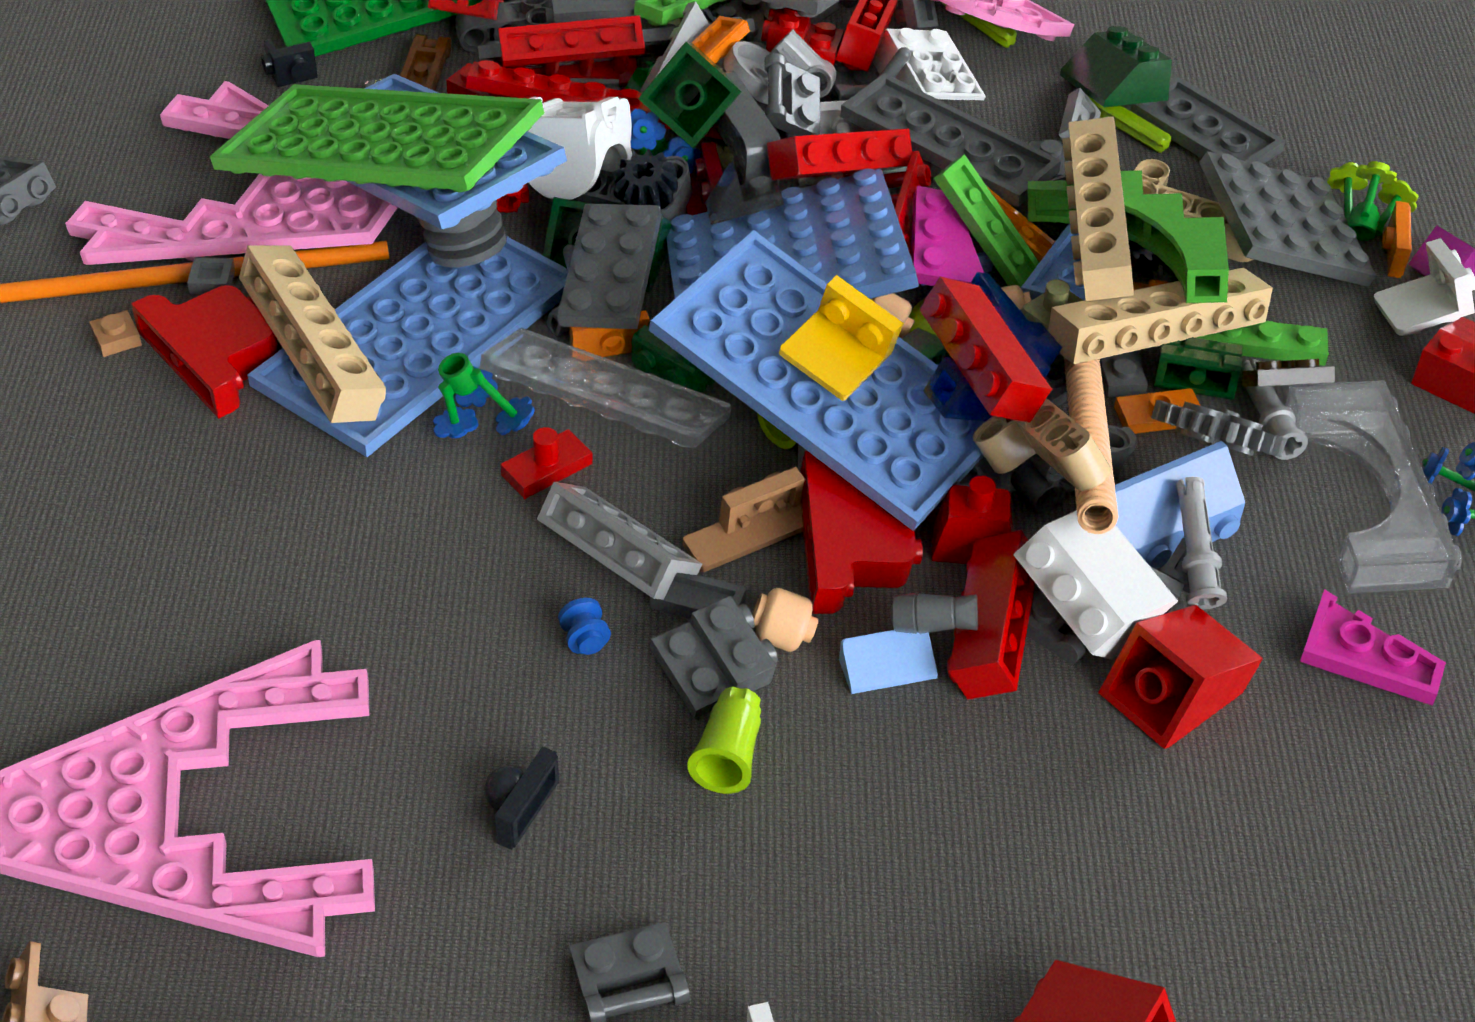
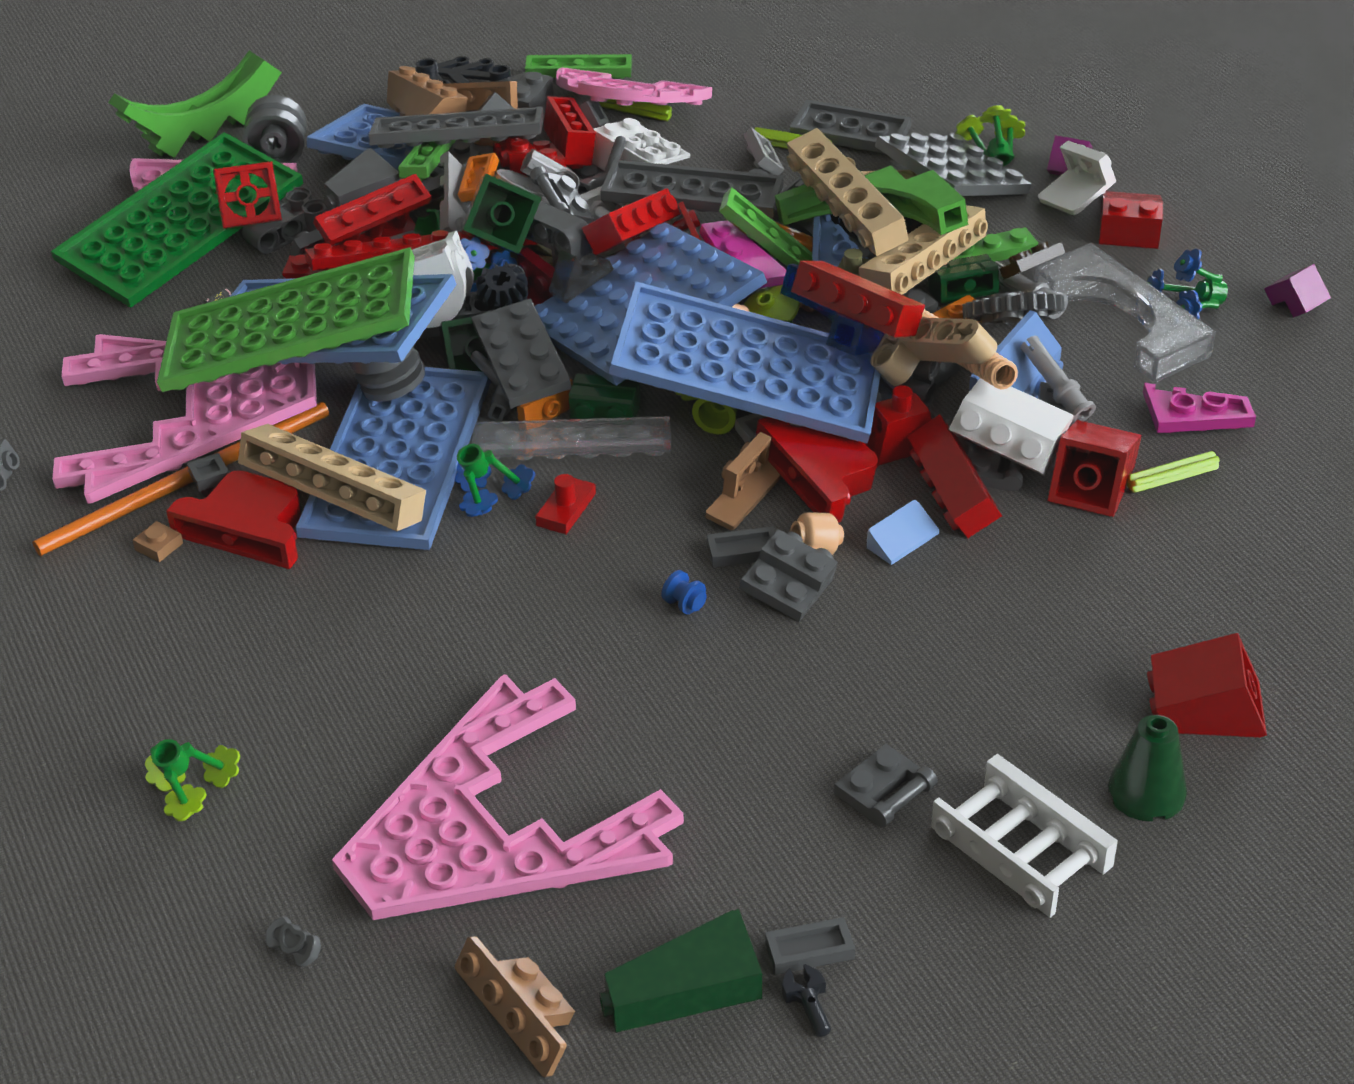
camera: 25 degrees left, 5 degrees down
(289, 63) = (133, 307): black bracket -> none
(426, 60) = (240, 266): reddish brown plate -> none
(520, 795) = (722, 710): black tile -> none
(615, 539) = (660, 531): light grey fence -> none
(727, 745) = (844, 626): lime plant -> none
(842, 339) = (750, 328): yellow bracket -> none
(933, 613) = (919, 486): dark grey piece -> none
(1119, 69) = (769, 105): dark green slope -> none
(1281, 722) = (1173, 471): none -> lime axle
(1398, 239) = (1030, 155): orange plate -> none

